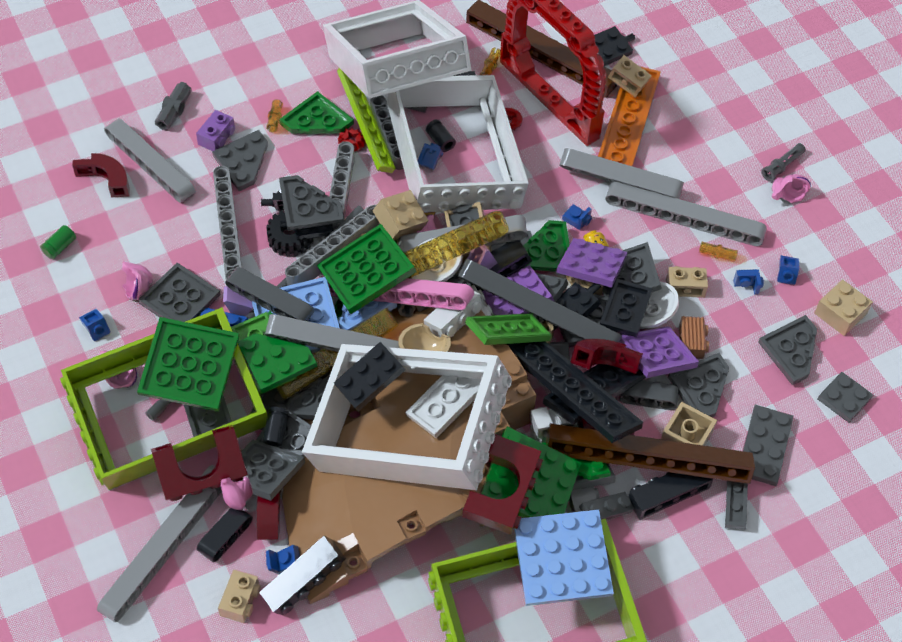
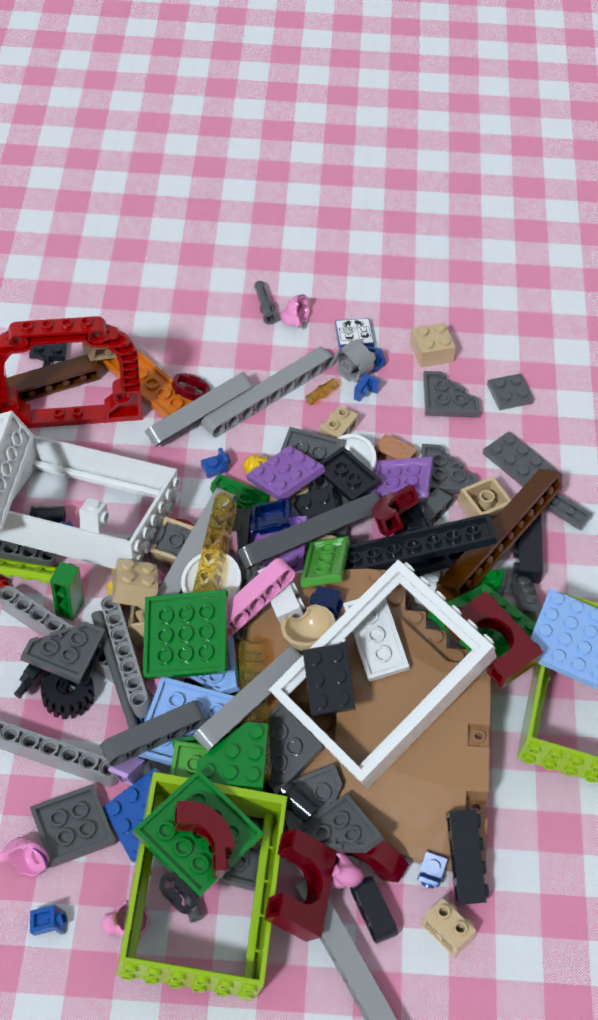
camera: 60 degrees left, 5 degrees down
(129, 376) = (182, 889): none -> black beam
(190, 369) = (205, 821): none -> dark red arch
(369, 179) = (67, 590): none -> green brick
(426, 147) = (93, 515): none -> white brick
(461, 342) = (328, 598): none -> clear blue brick
(528, 274) = (271, 522): none -> clear blue container
(631, 158) = (187, 391): none -> dark red piece
(767, 255) = (354, 360): none -> light grey brick
(807, 243) = (354, 329): none -> tile

